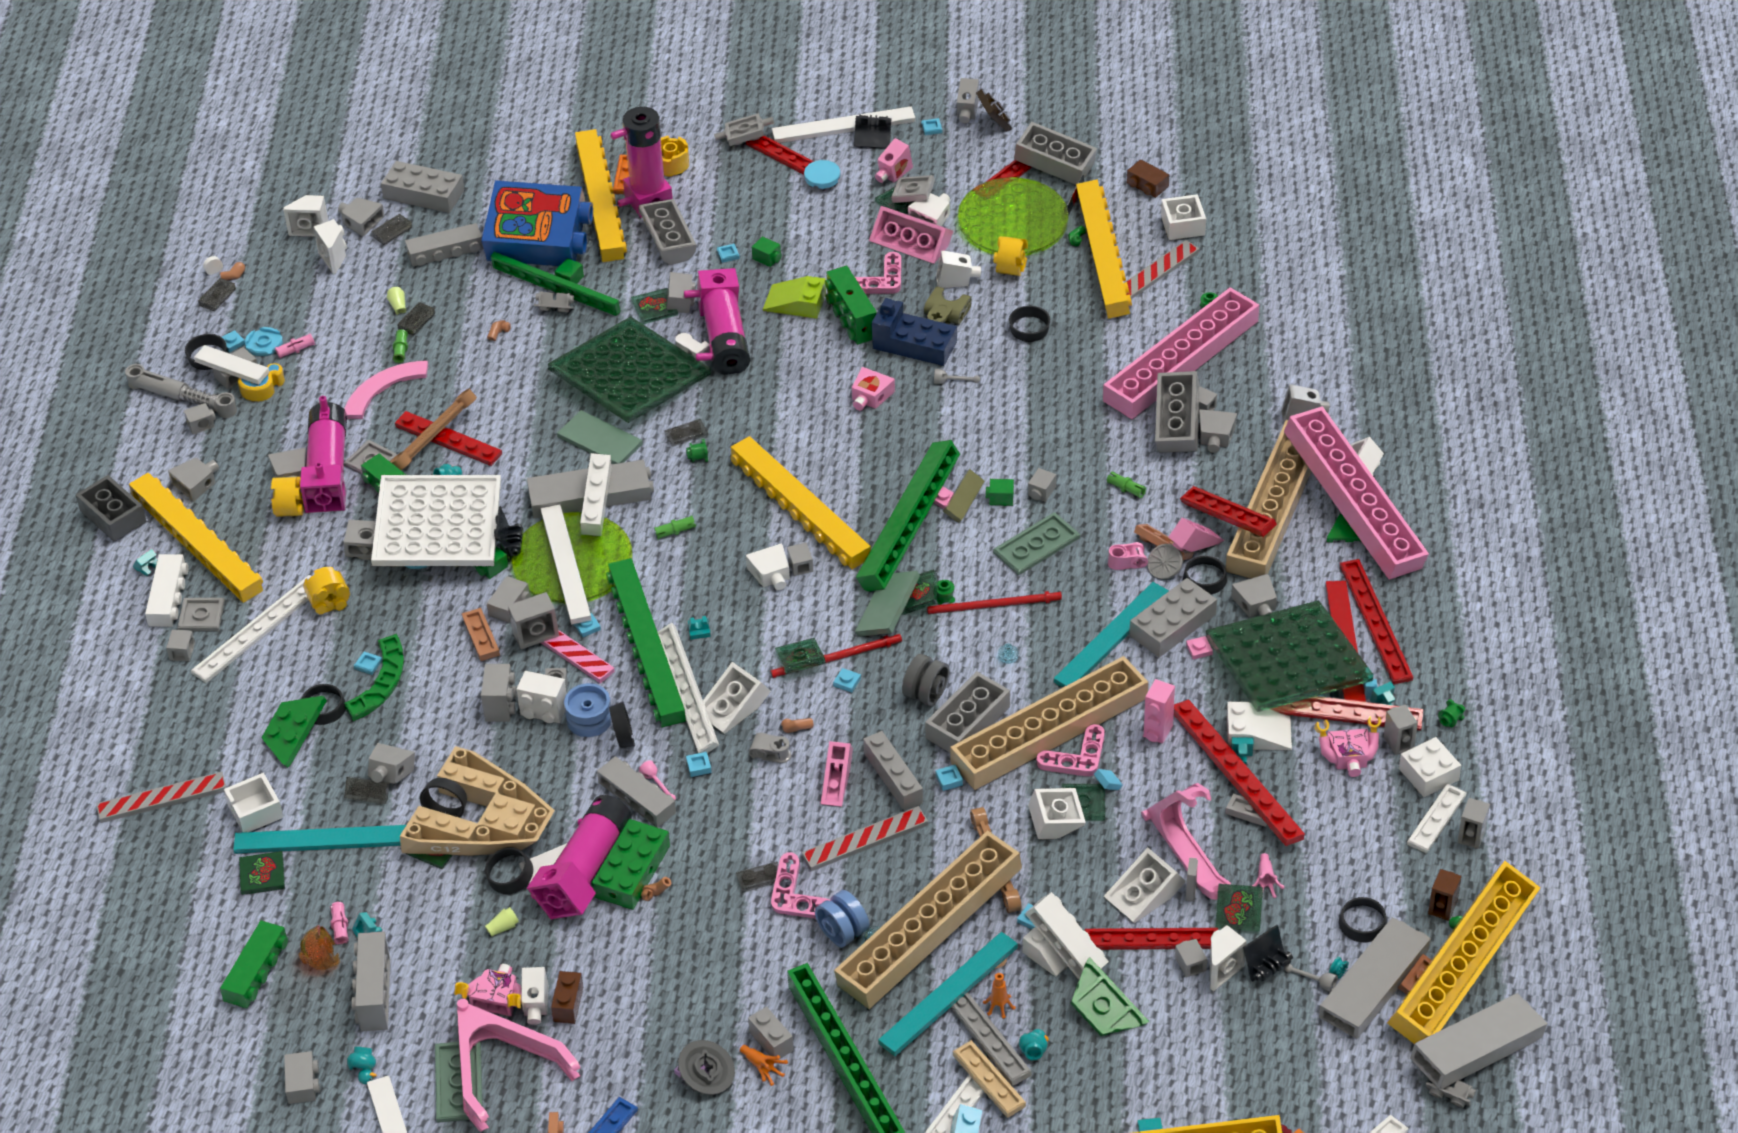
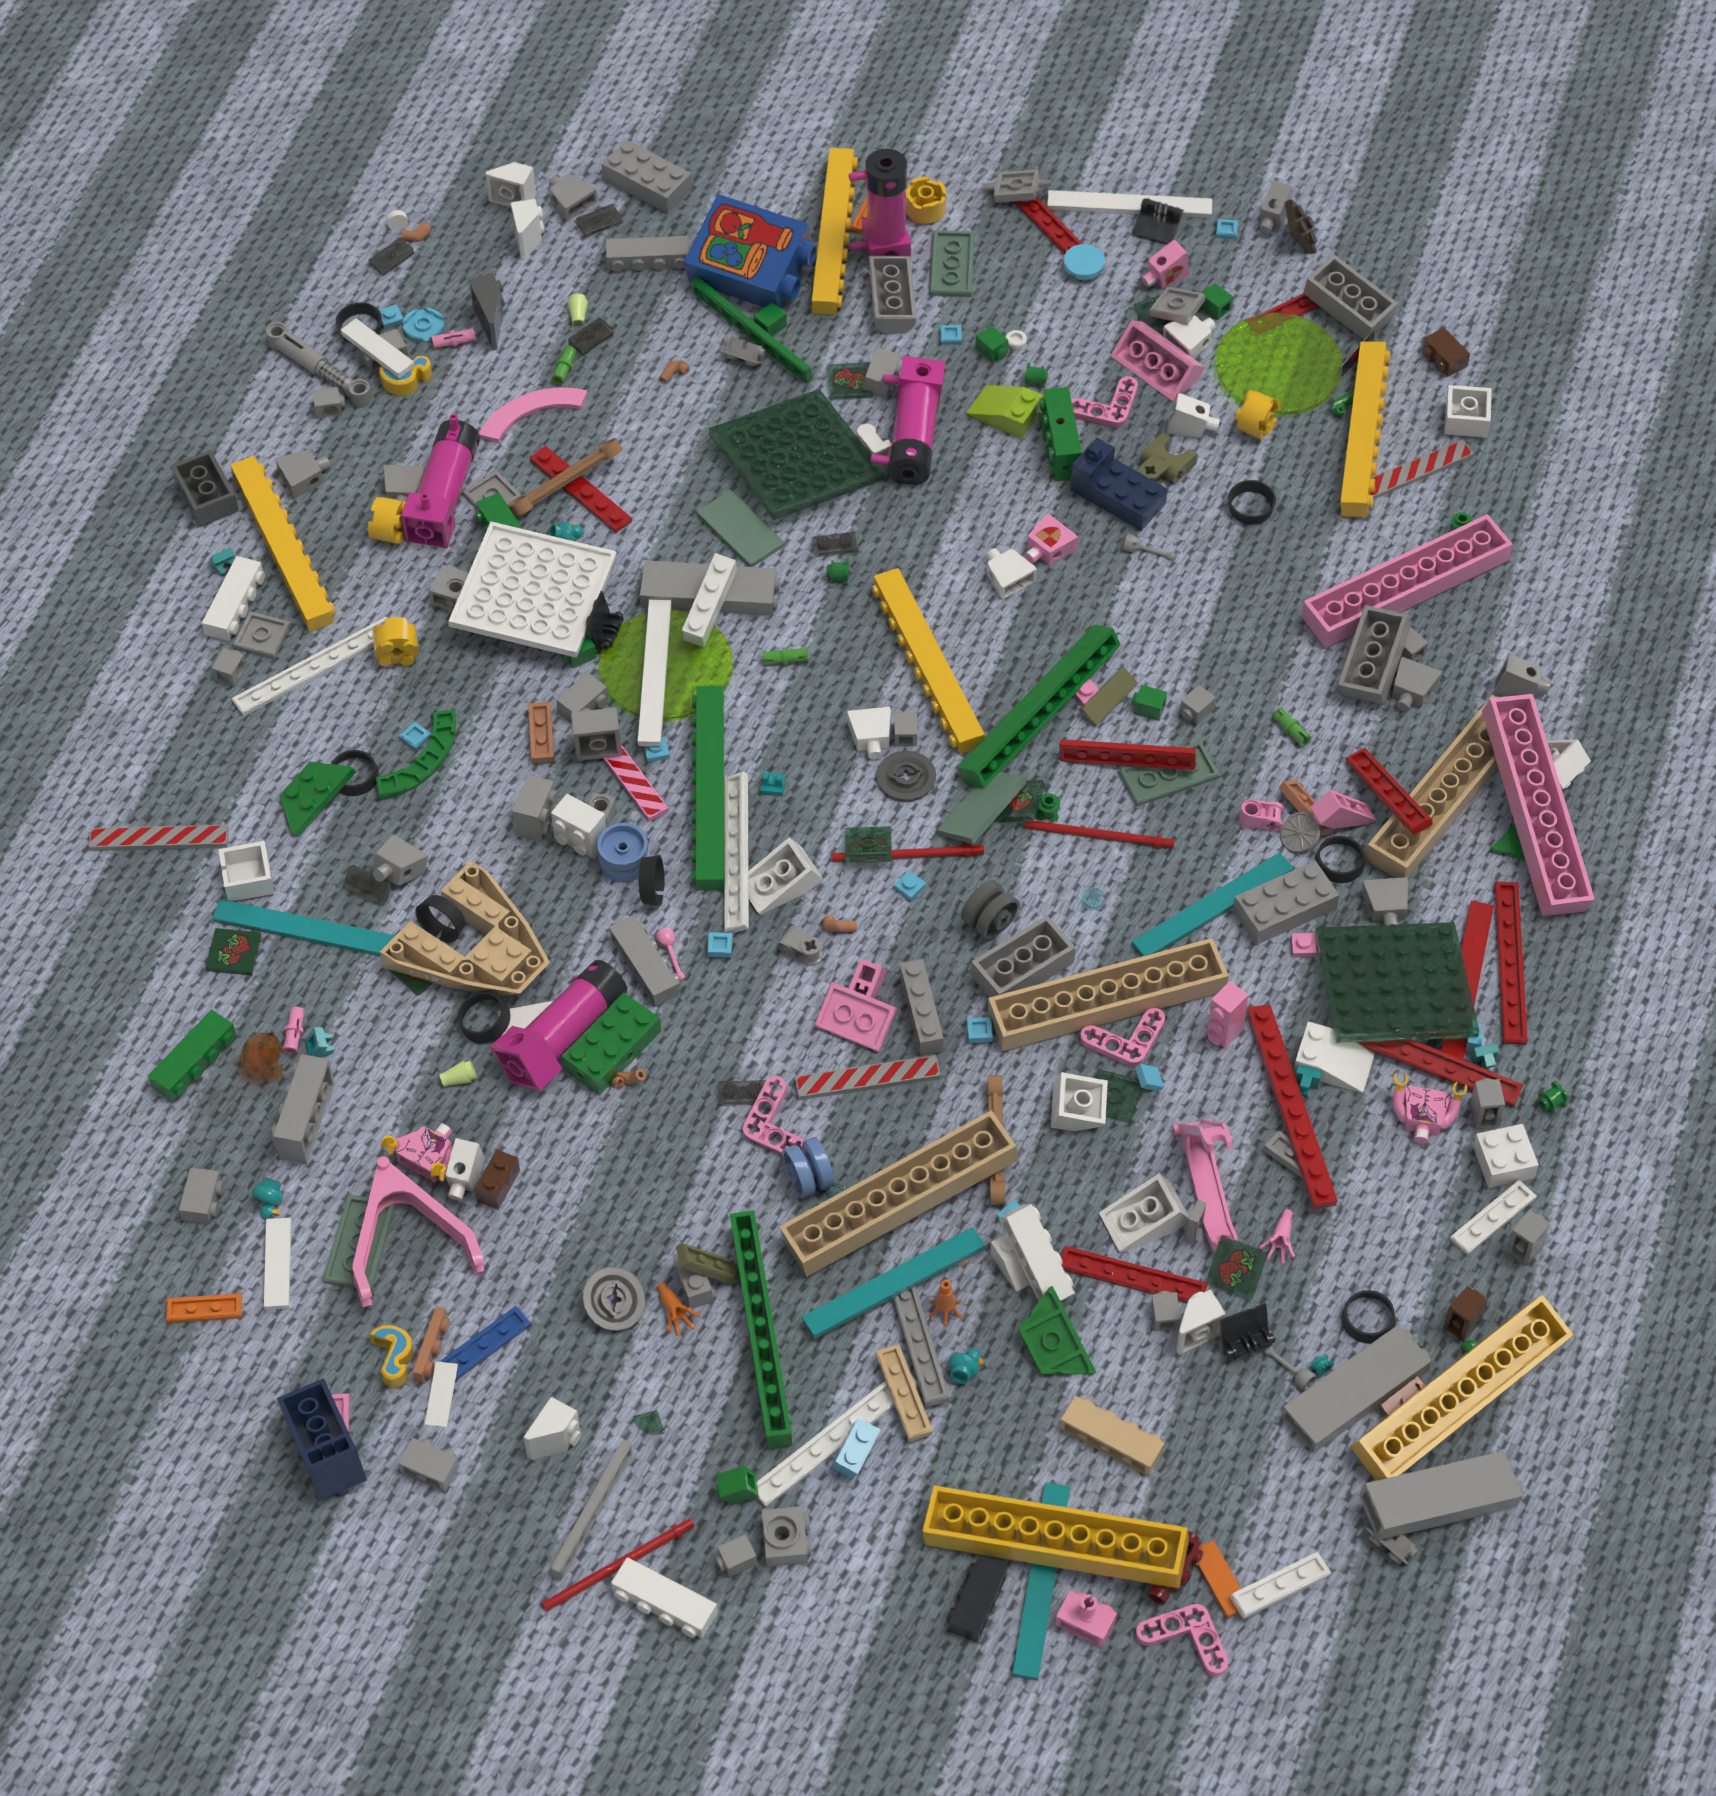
camera: 15 degrees right, 10 degrees up
(316, 312) = (488, 305): none -> dark grey slope
(709, 199) = (952, 263): none -> sand green tile
(781, 1016) = (707, 1264): none -> olive tile
(786, 244) = (1016, 339): none -> white tile
(799, 595) = (910, 762): none -> dark grey gear
(812, 267) = (1035, 375): none -> green brick
(838, 791) = (855, 1017): none -> bright pink tile
(844, 419) = (1009, 572): none -> white torso
(945, 180) = (1217, 301): none -> green brick
(998, 534) = (1127, 754): none -> red tile
(1182, 1067) = (1112, 1435): none -> tan brick

